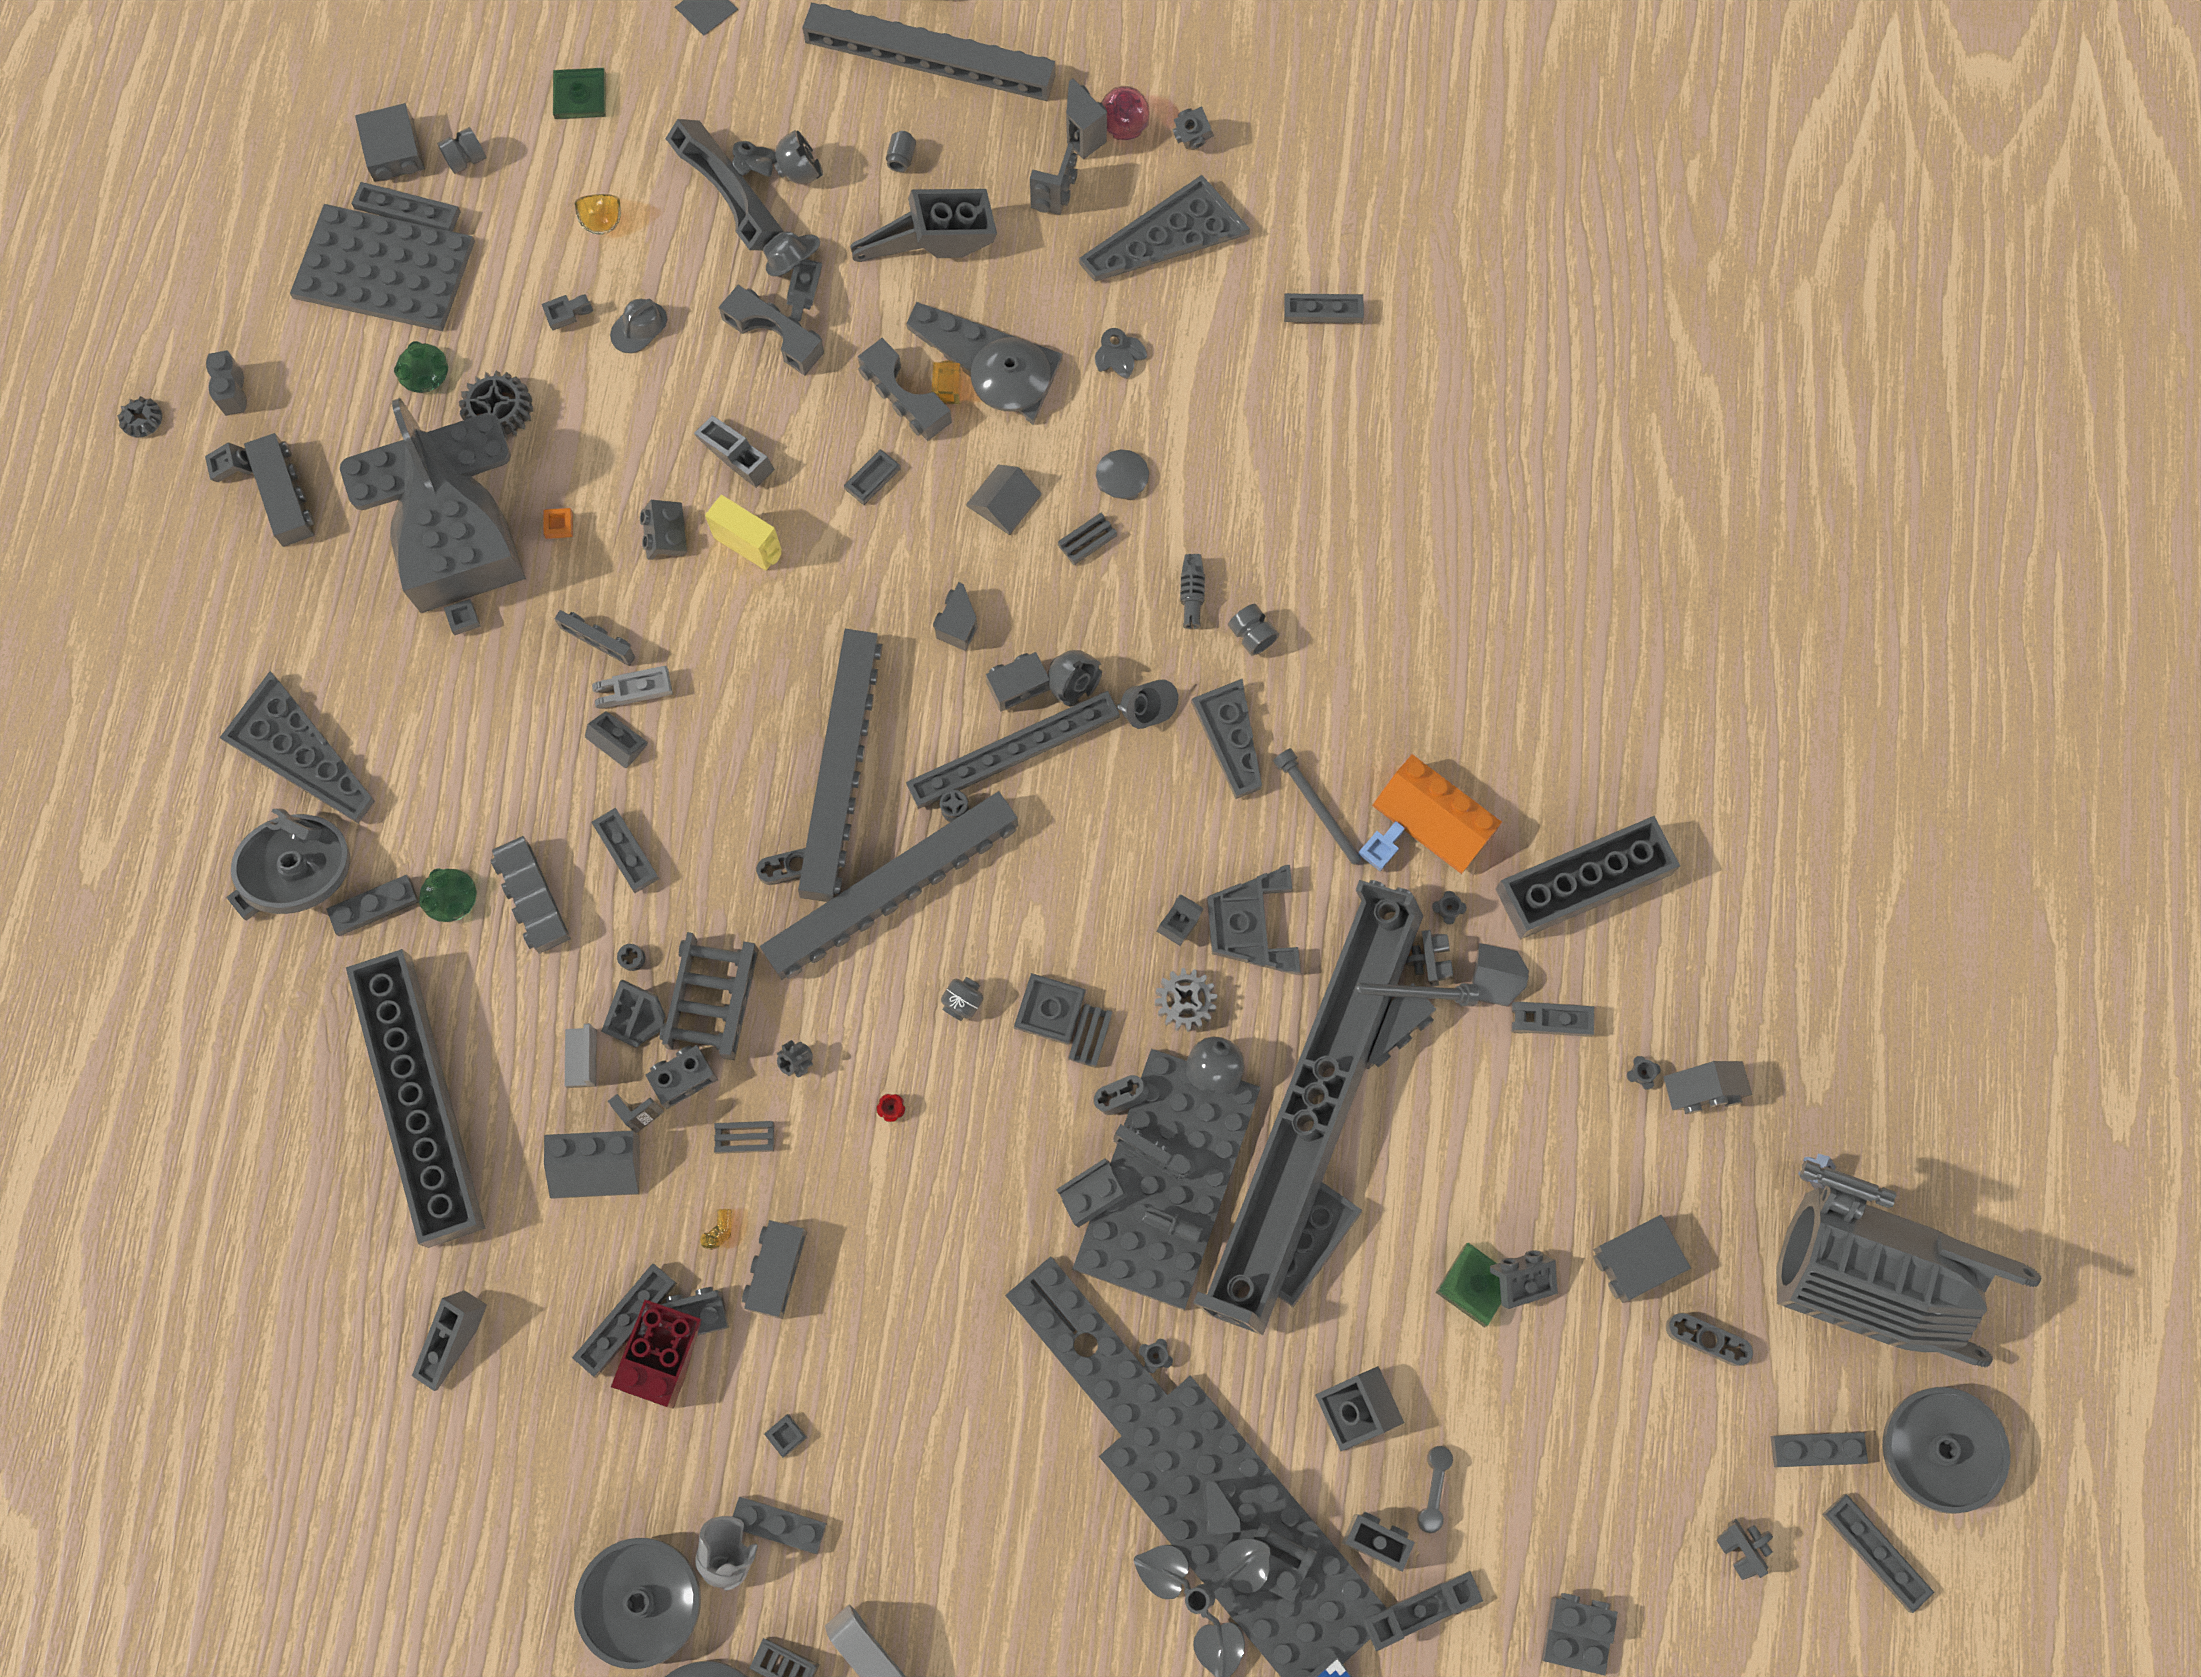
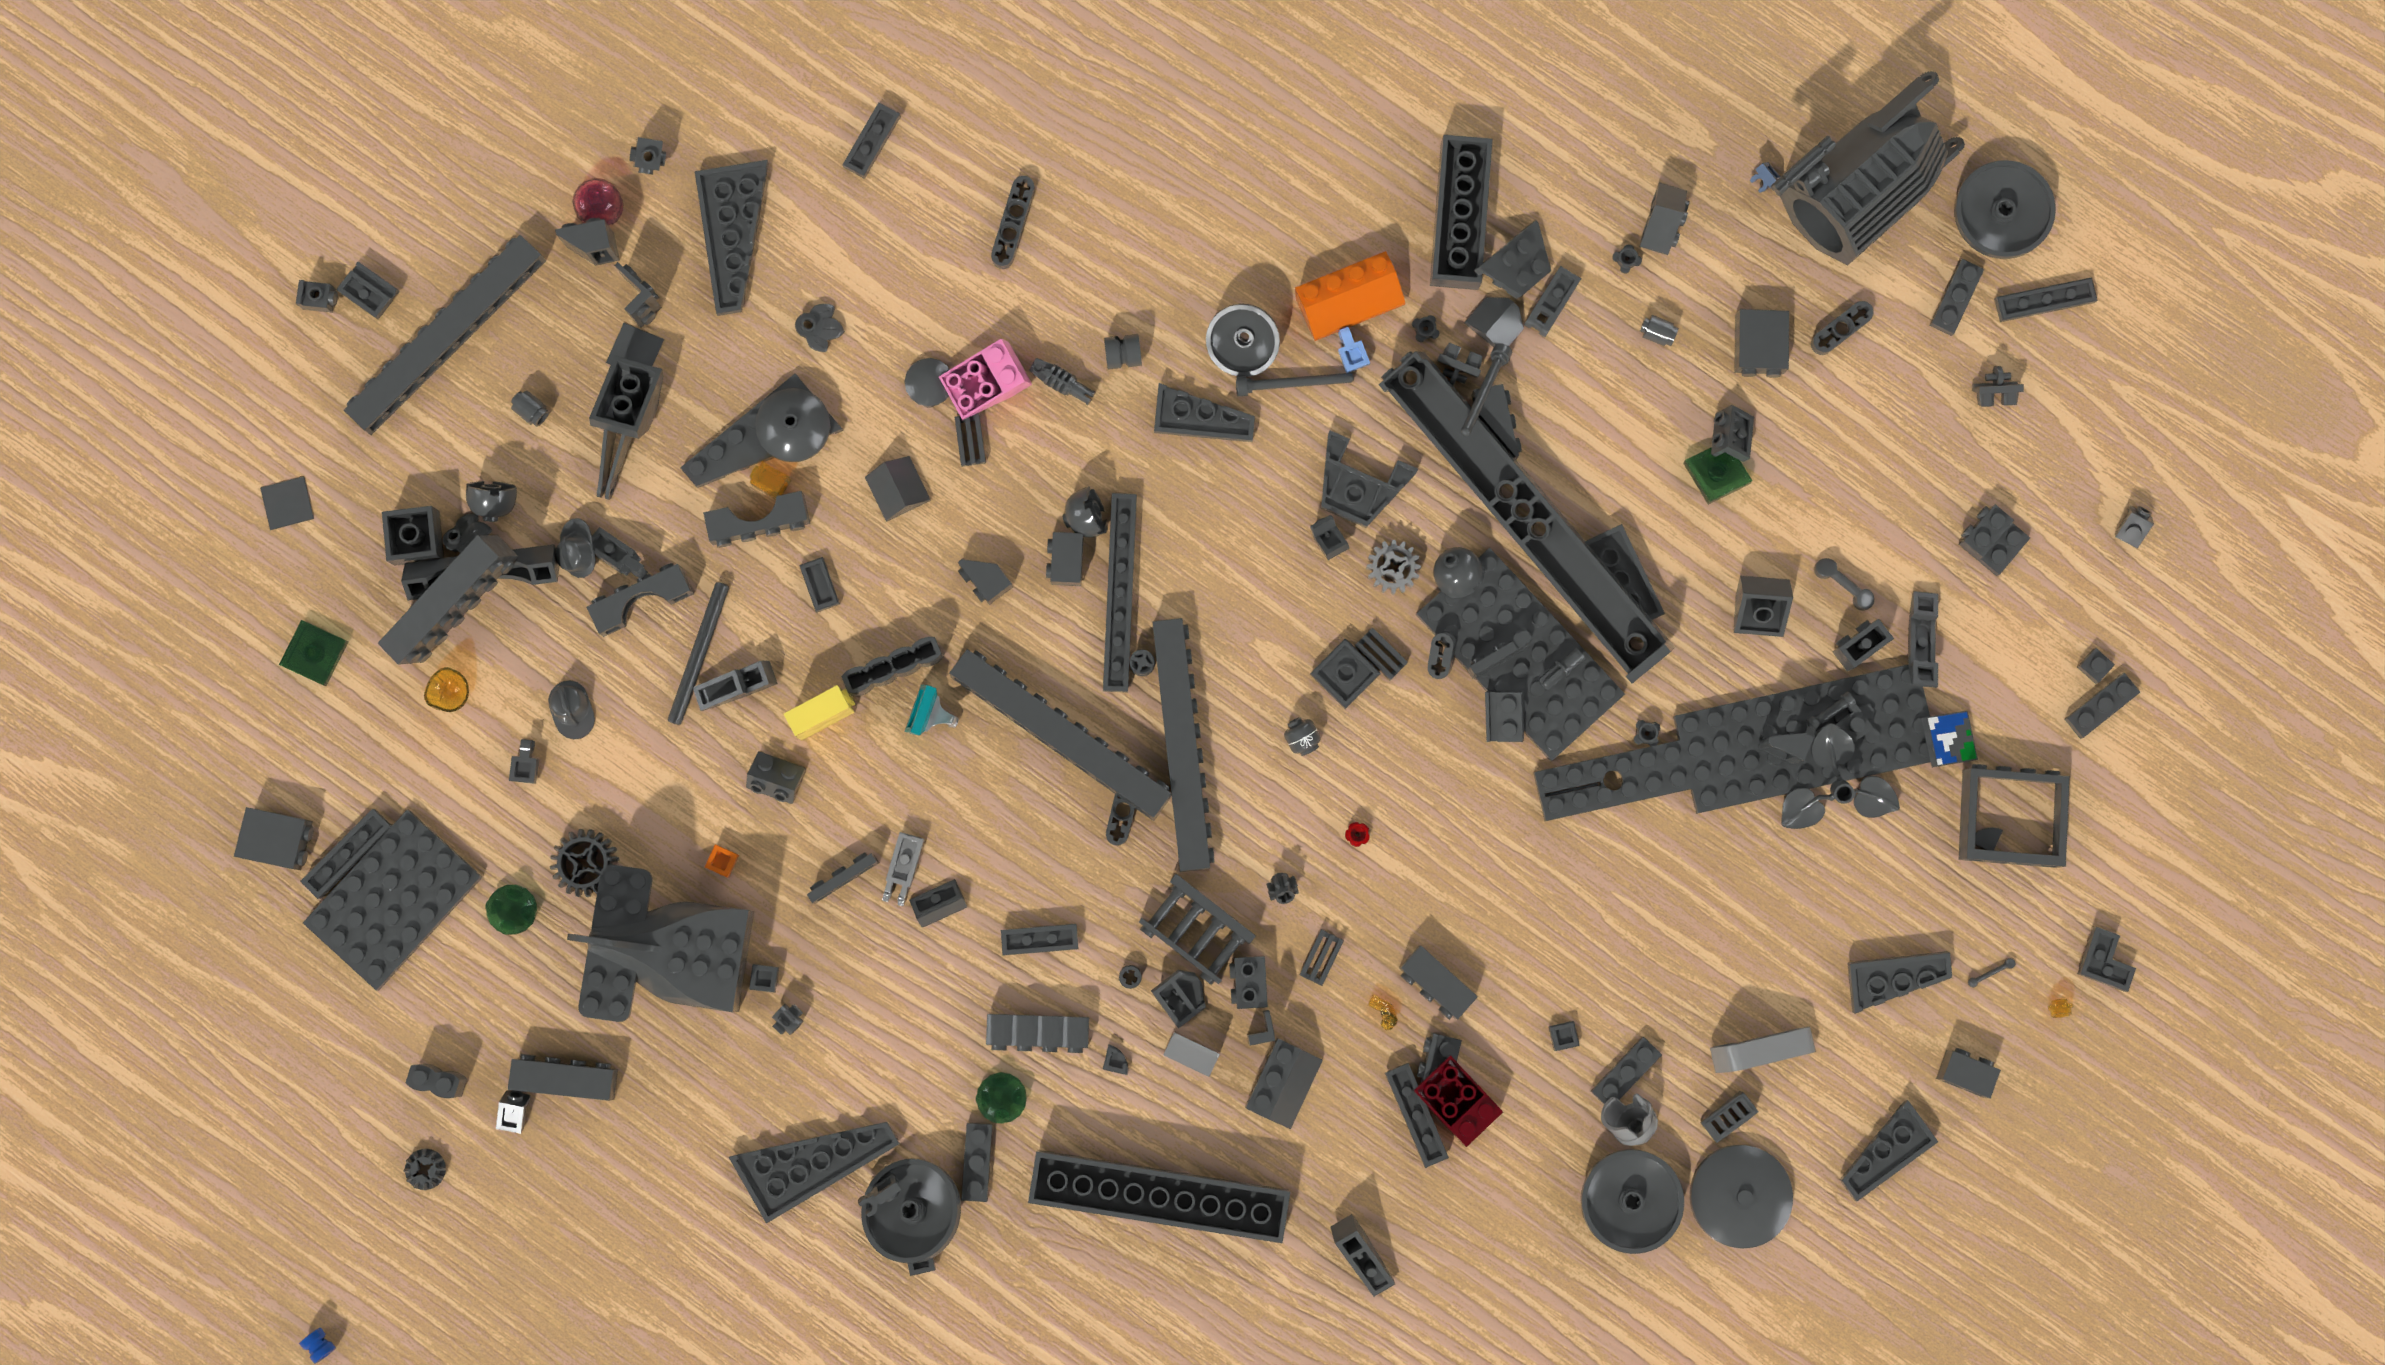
camera: 65 degrees left, 10 degrees up
(430, 656) = (787, 1019): none -> dark grey gear
(461, 150) = (318, 780): dark grey wheel -> none
(538, 987) = (1115, 1061): none -> dark grey tile
(680, 163) = (448, 600): none -> dark grey brick
(728, 113) = (412, 535): none -> dark grey brick
(748, 405) = (698, 653): none -> dark grey axle
(798, 634) = (928, 712): none -> teal piece
(825, 576) = (885, 669): none -> dark grey brick
(1010, 212) = (635, 345): none -> dark grey sticker
(1149, 703) = (1140, 468): dark grey piece -> none
(1154, 520) = (985, 379): none -> bright pink slope
(1319, 723) = (1241, 355): none -> dark grey dish
(1320, 465) = (1010, 221): none -> dark grey beam
(1570, 961) = (1519, 262): none -> dark grey wing
(1588, 1143) = (1659, 330): none -> dark grey brick

